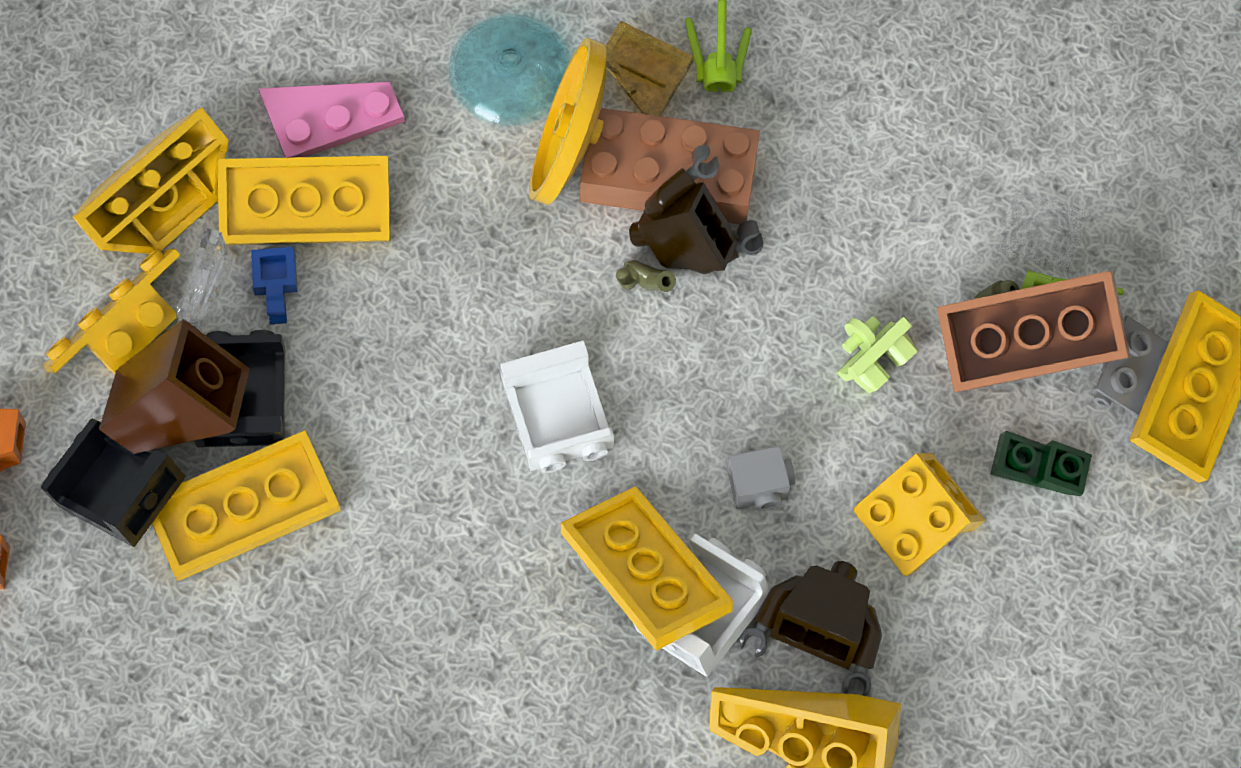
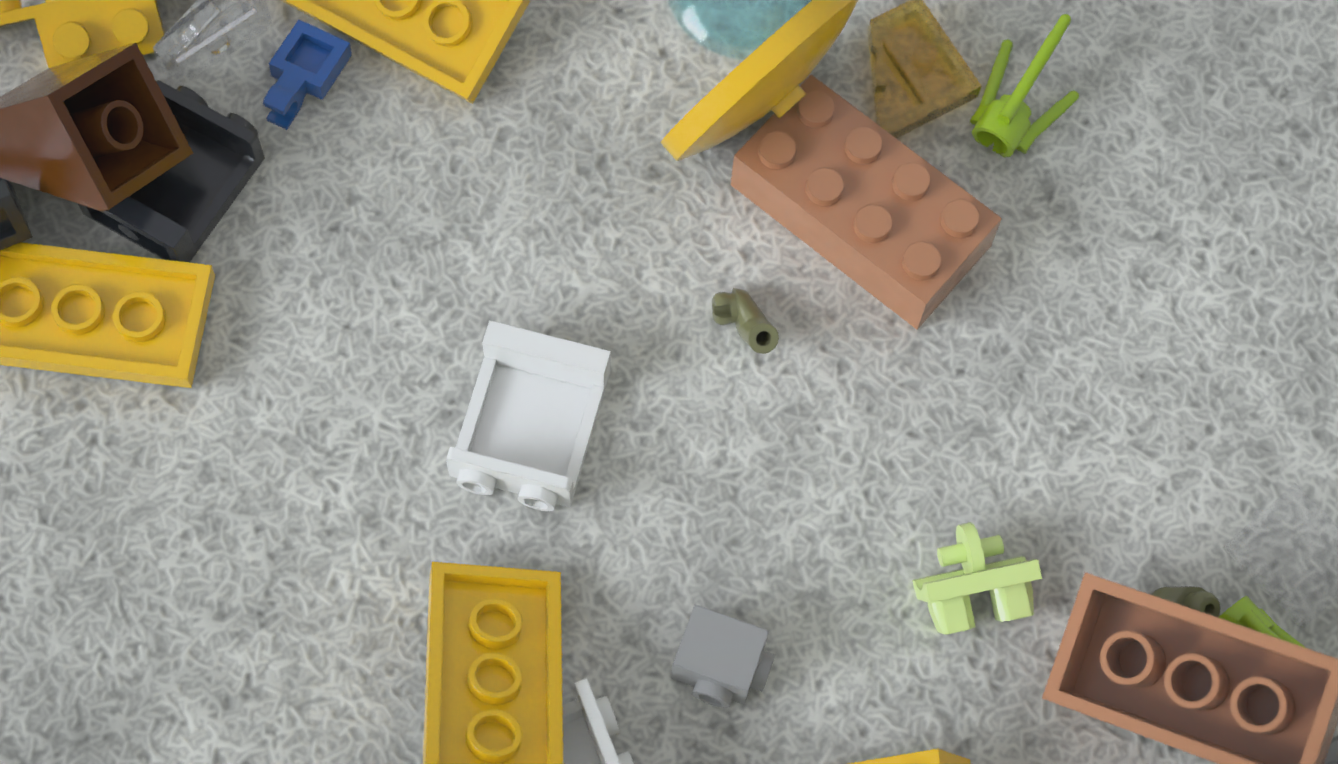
camera: 30 degrees right, 0 degrees up
(687, 225) = (833, 285): dark brown torso -> none

